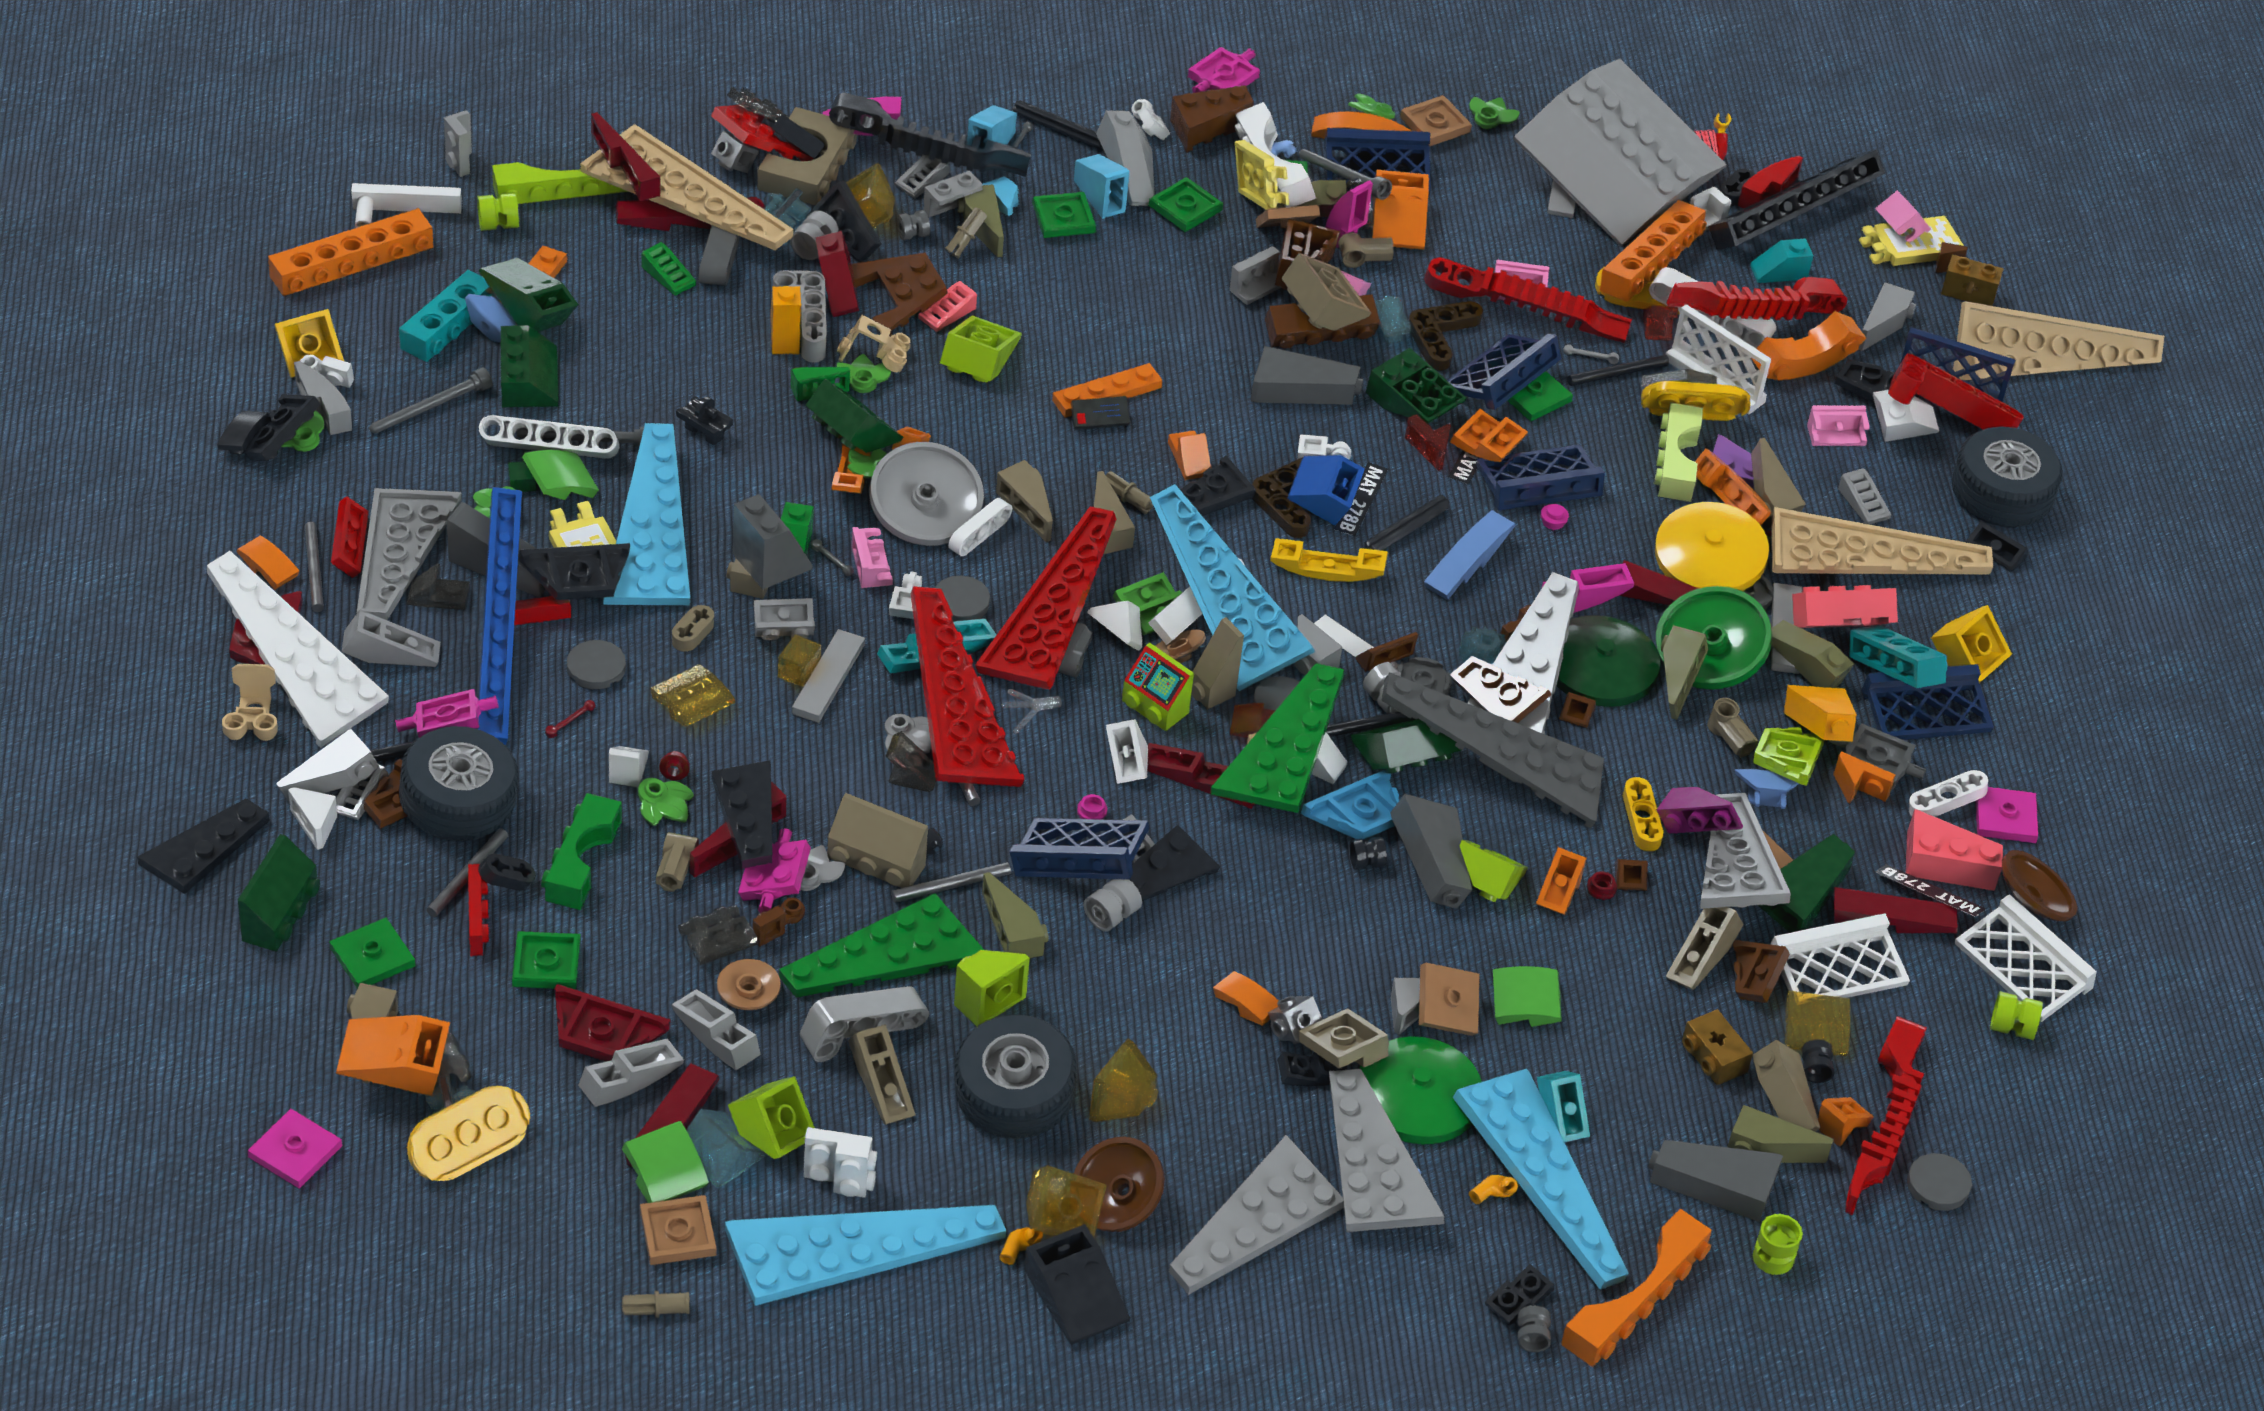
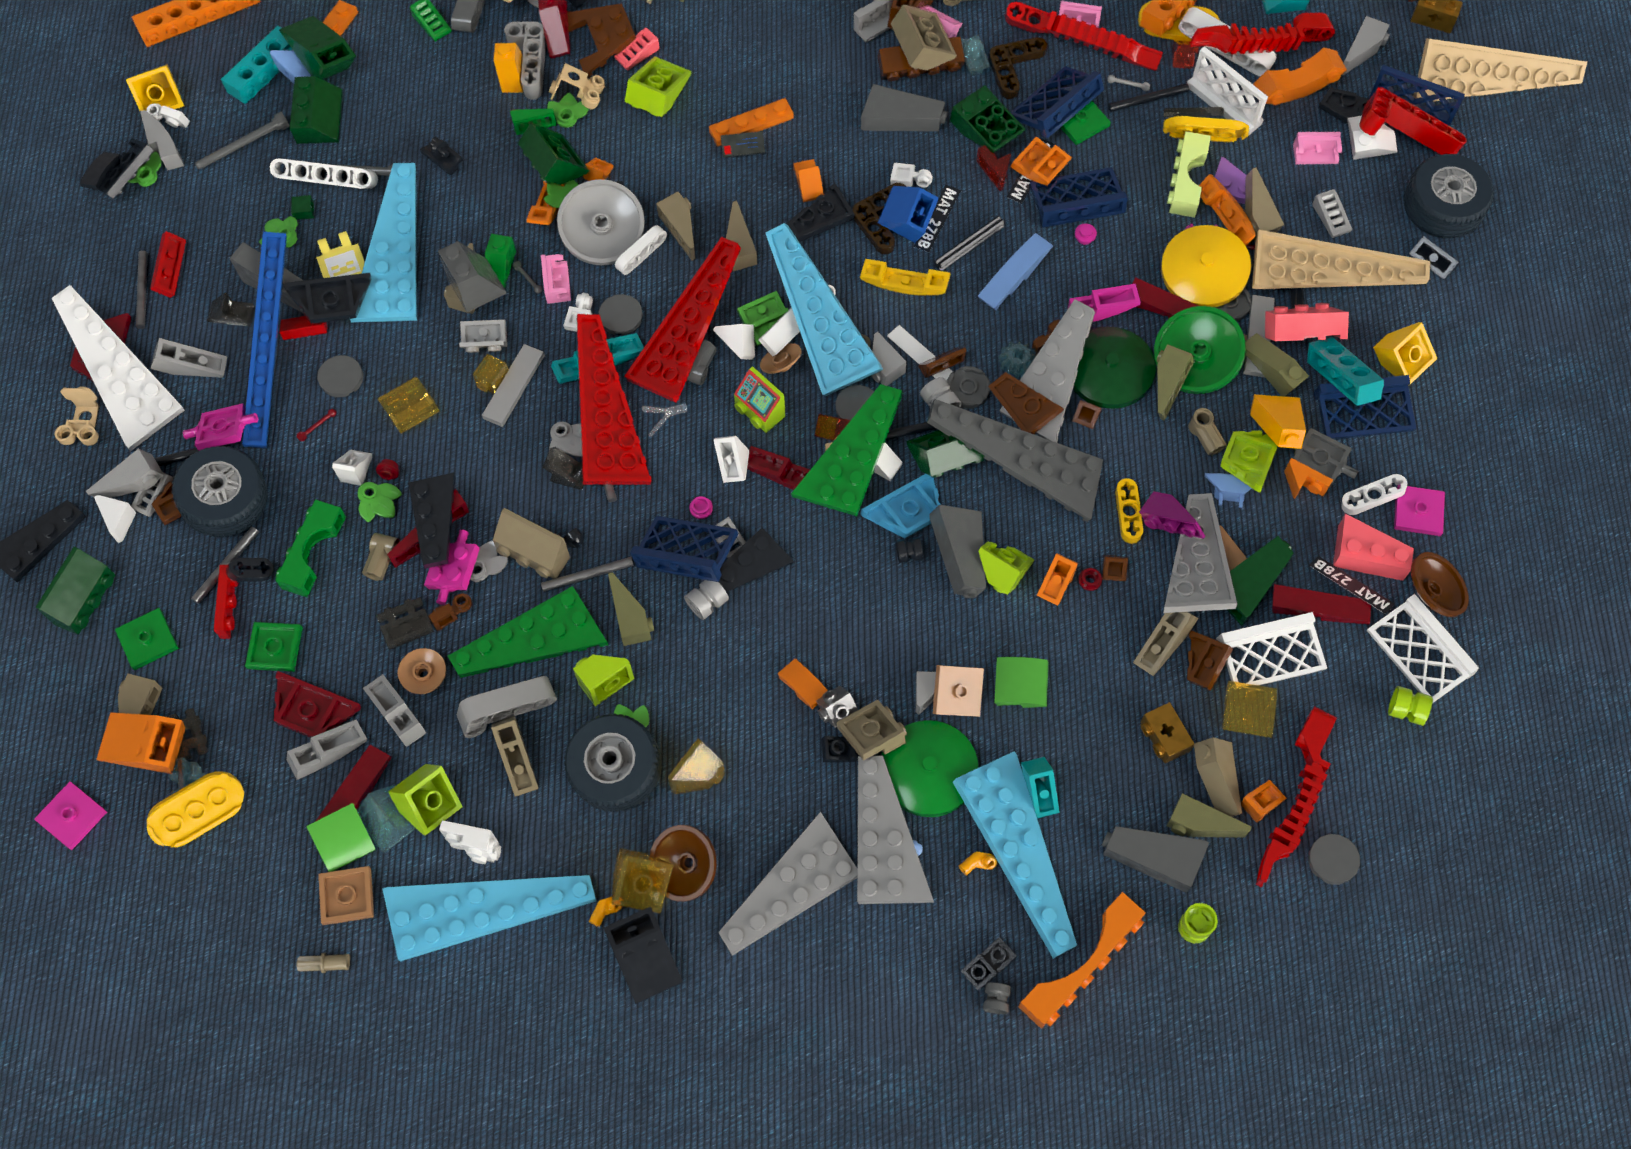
camera: 10 degrees right, 20 degrees up
(269, 561) = (107, 286): orange slope -> none
(398, 541) = (203, 271): light grey wing -> none
(560, 473) = (329, 206): bright green slope -> none
(697, 631) = (414, 342): dark tan beam -> none
(1130, 493) = (757, 216): dark tan axle -> none
(1219, 666) = (806, 384): dark tan slope -> none
(1818, 1061) = (1246, 746): black wheel -> none

